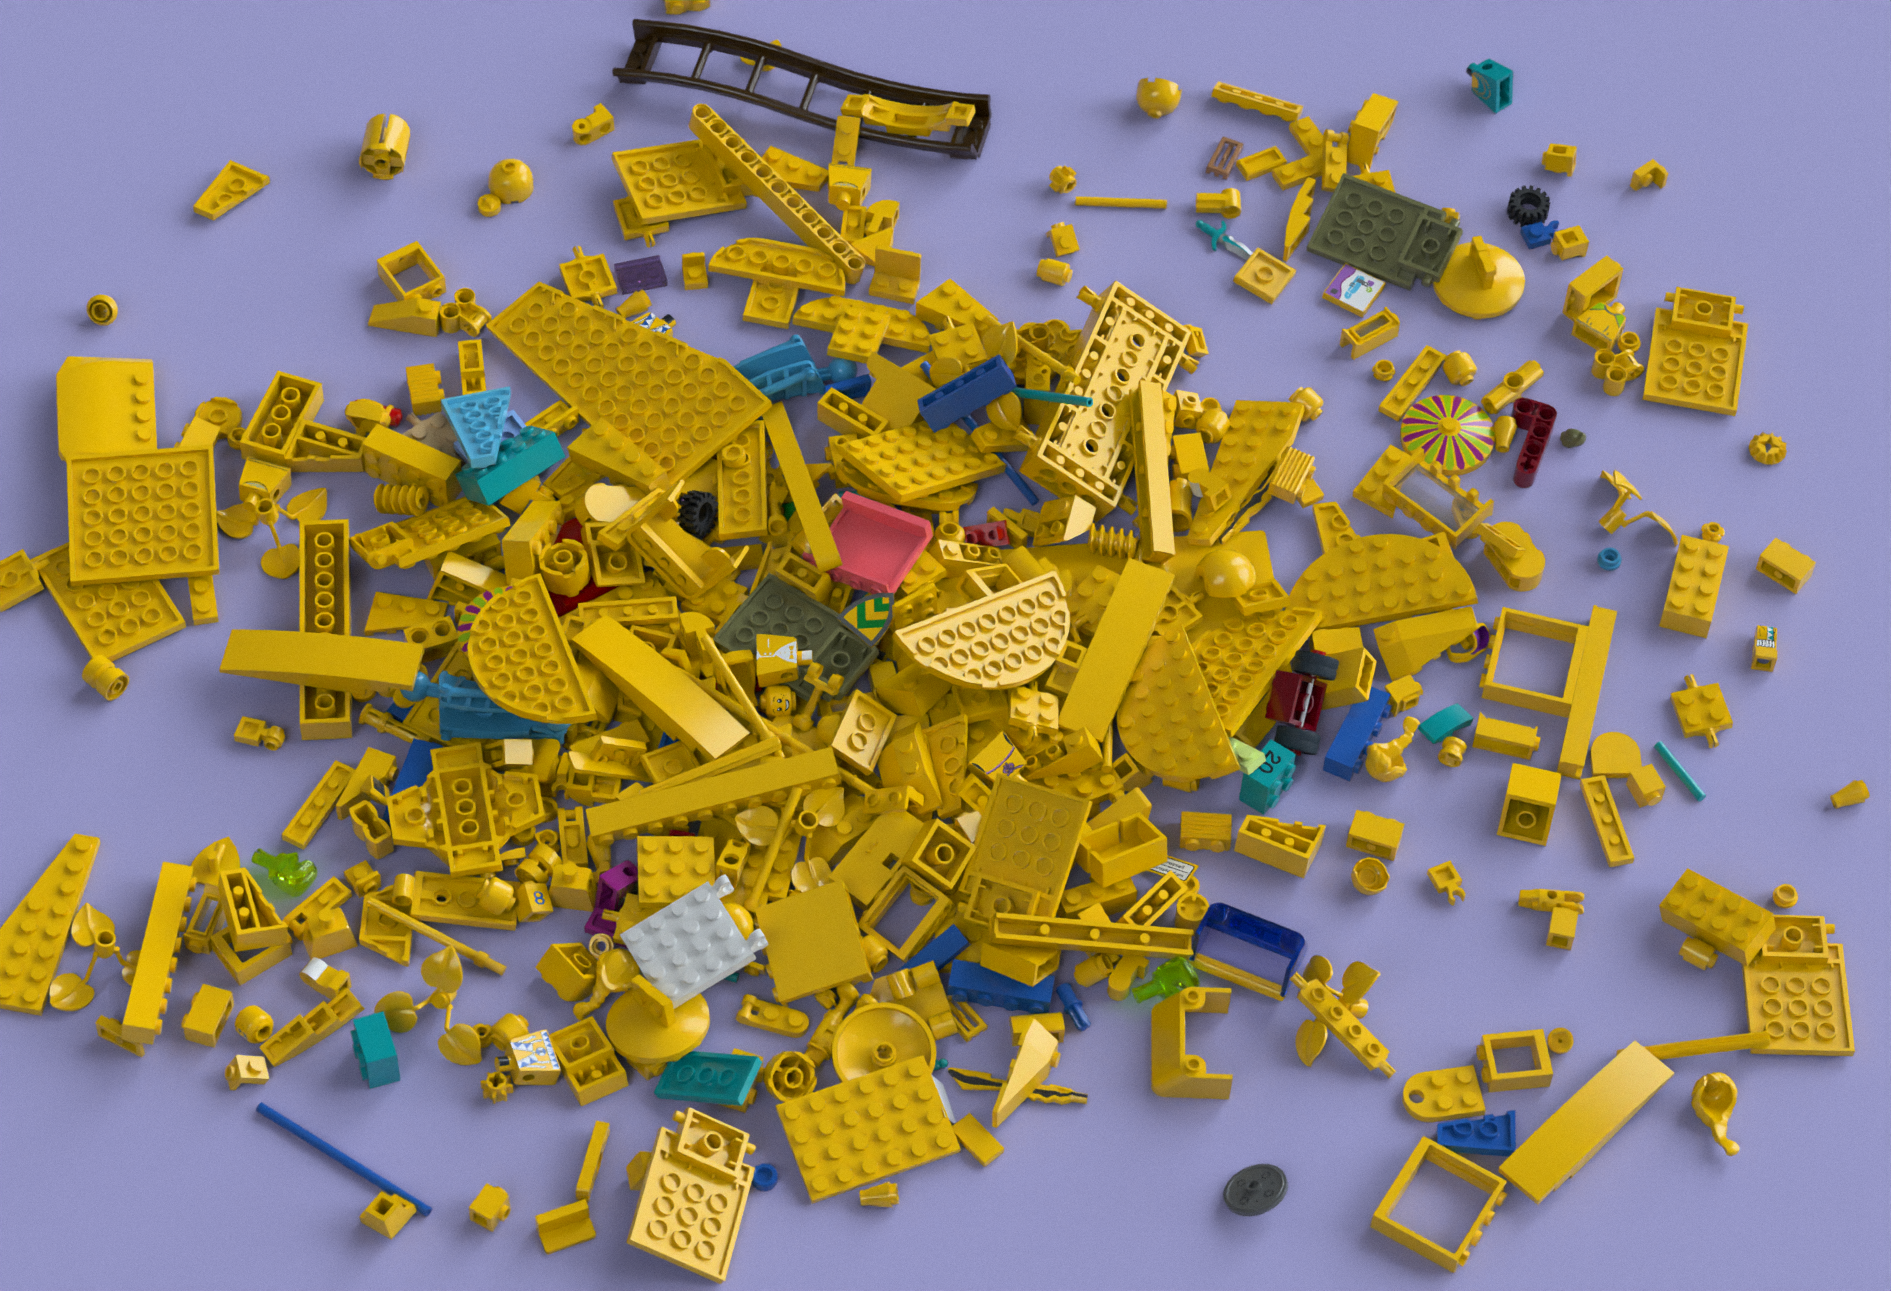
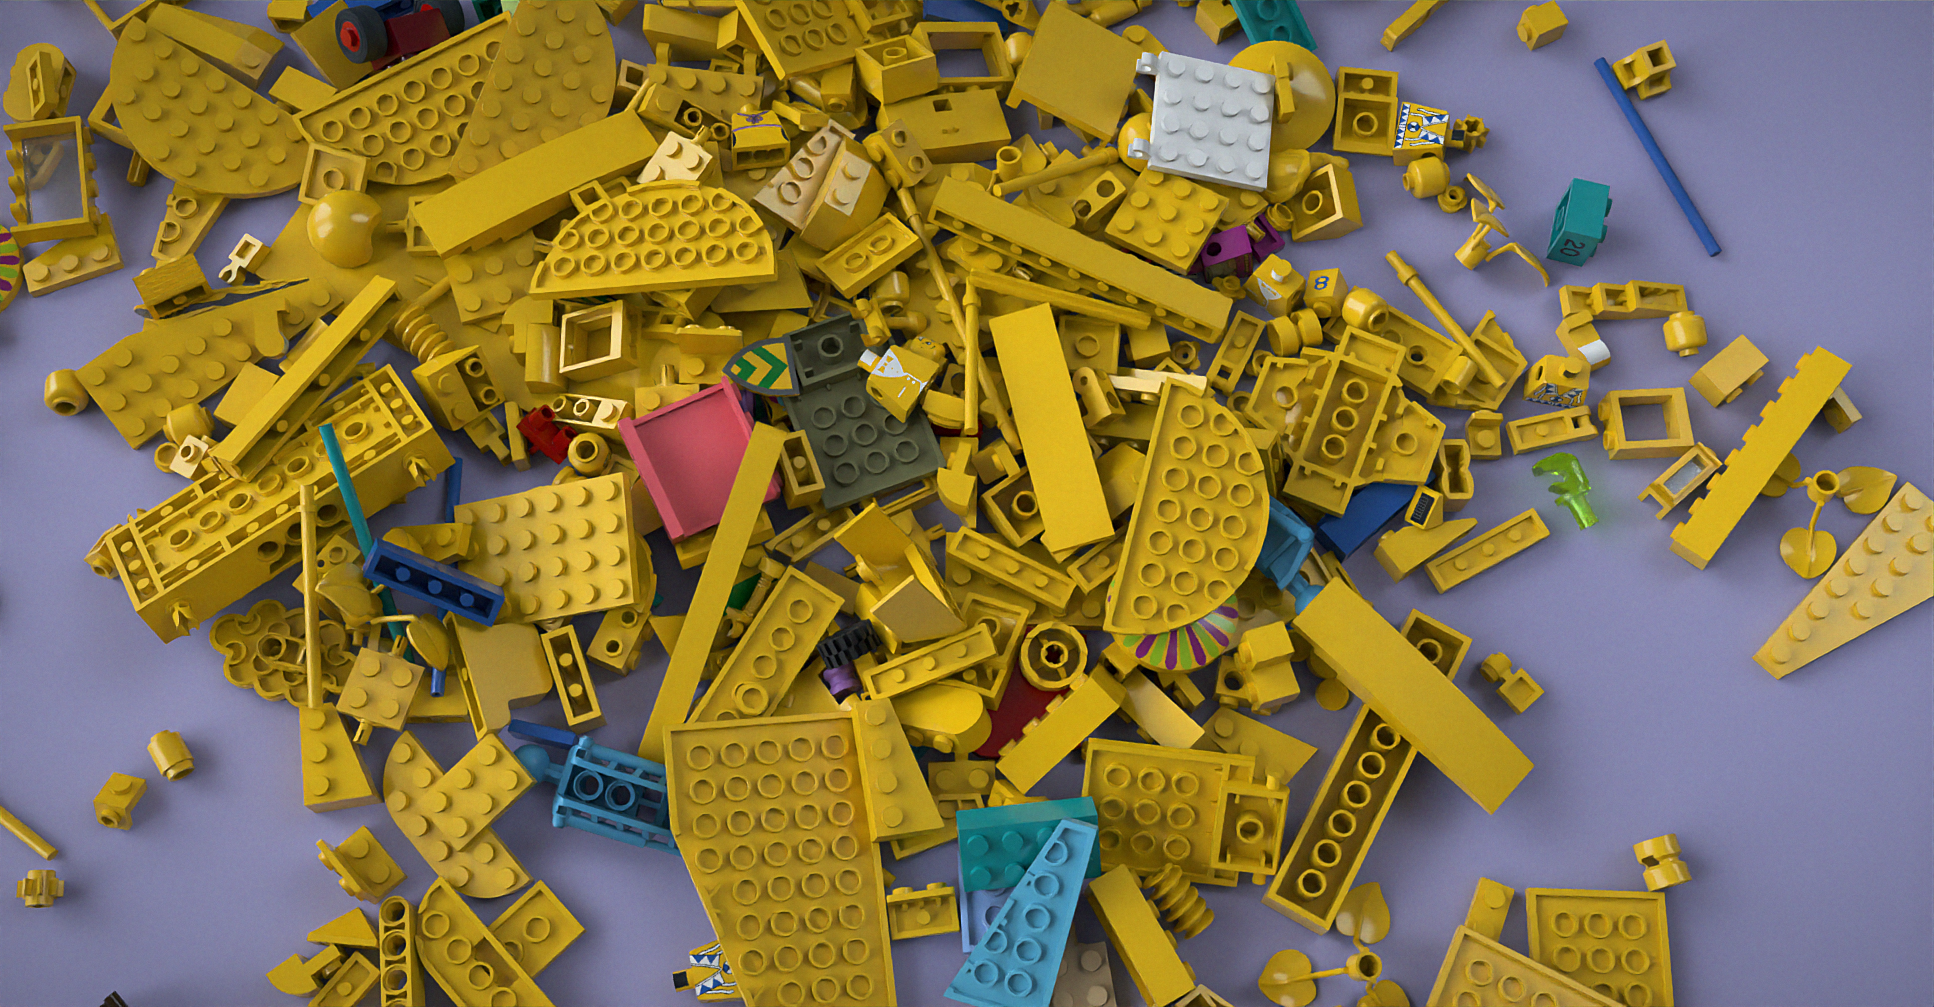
camera: 145 degrees left, 15 degrees up
(215, 858) = (1633, 552): yellow shield -> none
(246, 1070) = (1715, 290): yellow bracket -> none
(248, 913) = (1651, 425): yellow wedge -> none
(427, 628) = (1265, 659): none -> yellow brick
(641, 728) = (1098, 398): none -> yellow leg
(1275, 535) = (245, 257): none -> yellow plate

